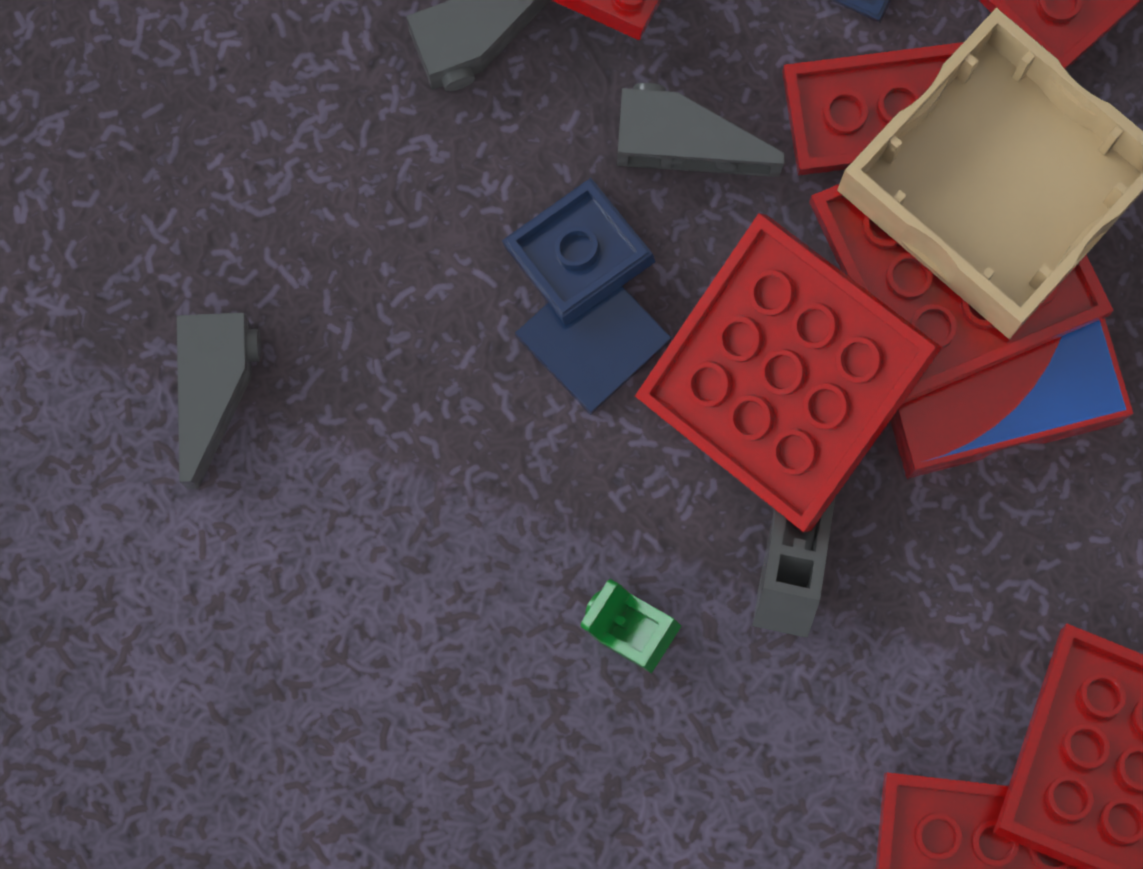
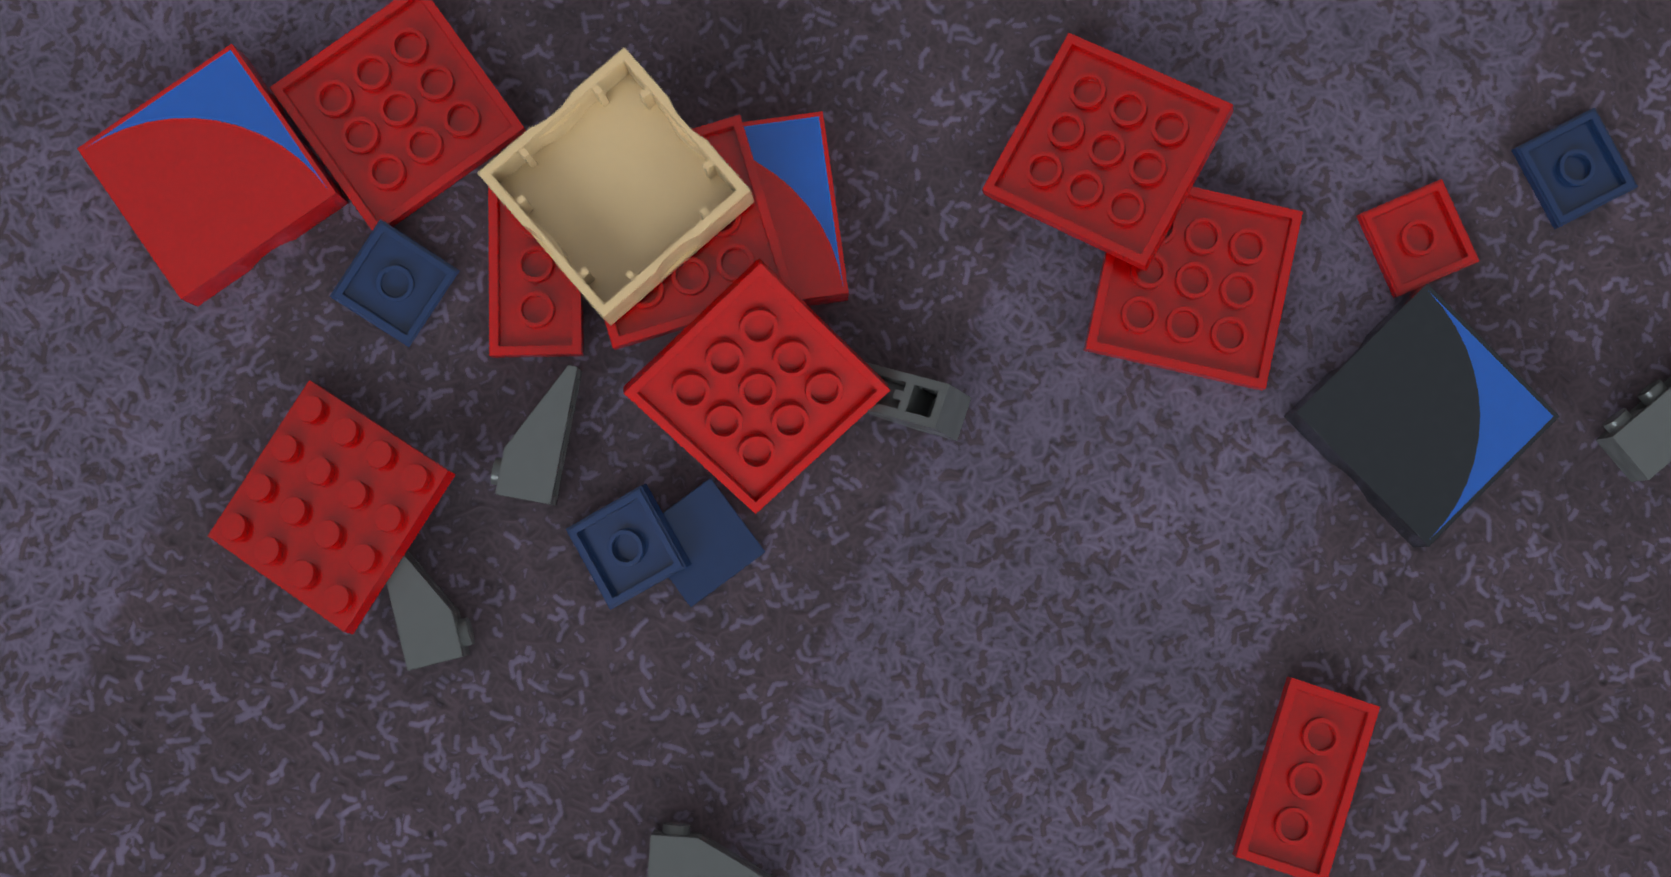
camera: 90 degrees left, 5 degrees up
(629, 626) = (946, 540): green bracket -> none

